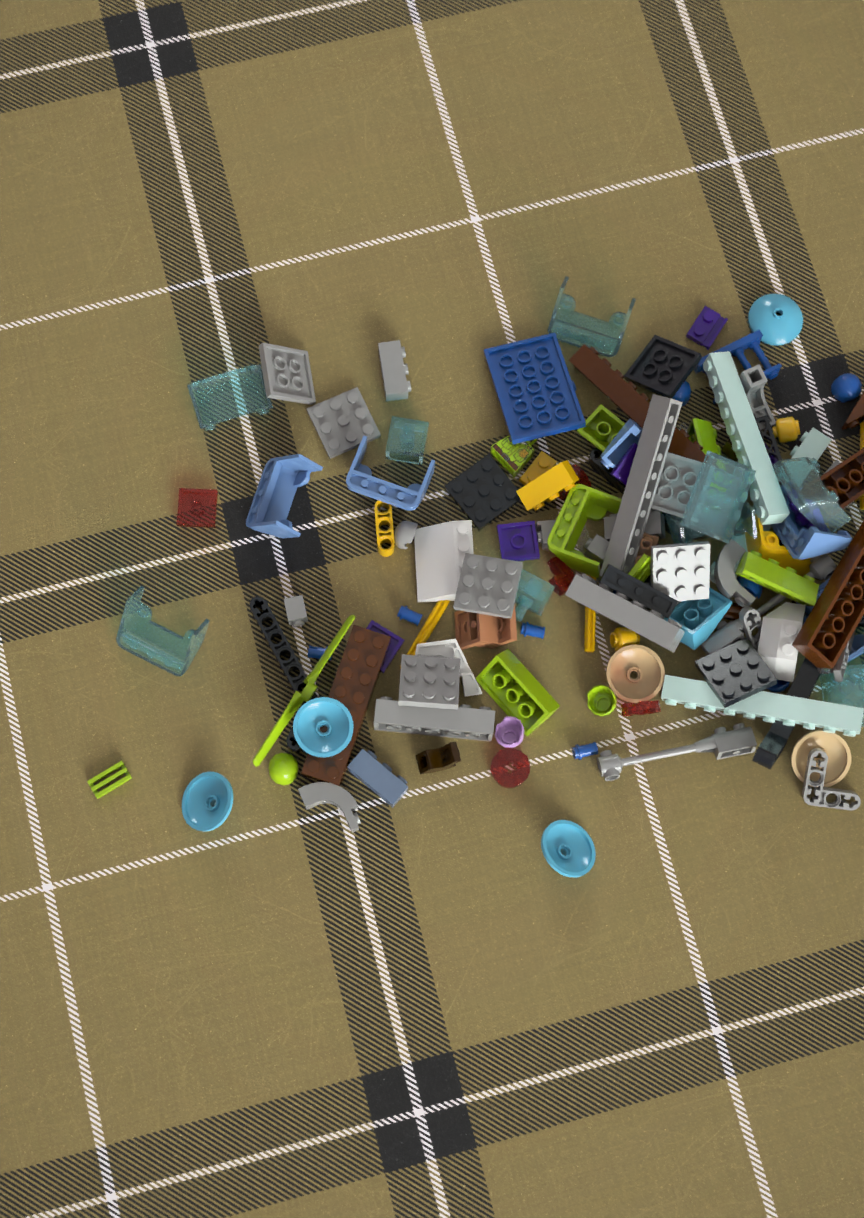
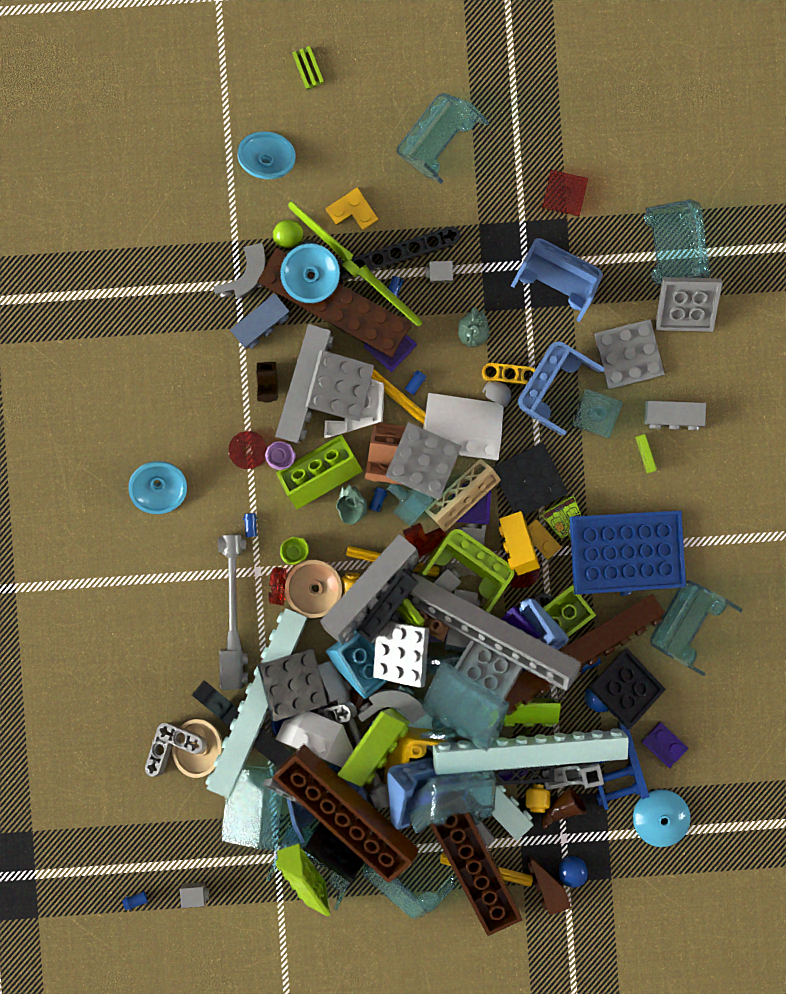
camera: 105 degrees right, 15 degrees up
(243, 706) = (352, 205): none -> yellow plate
(346, 569) = (473, 328): none -> sand green hair
(436, 390) = (646, 453): none -> lime tile
(513, 542) = (465, 496): none -> tan fence
(544, 653) = (351, 505): none -> sand green hair
(788, 404) = (565, 806): none -> reddish brown hat

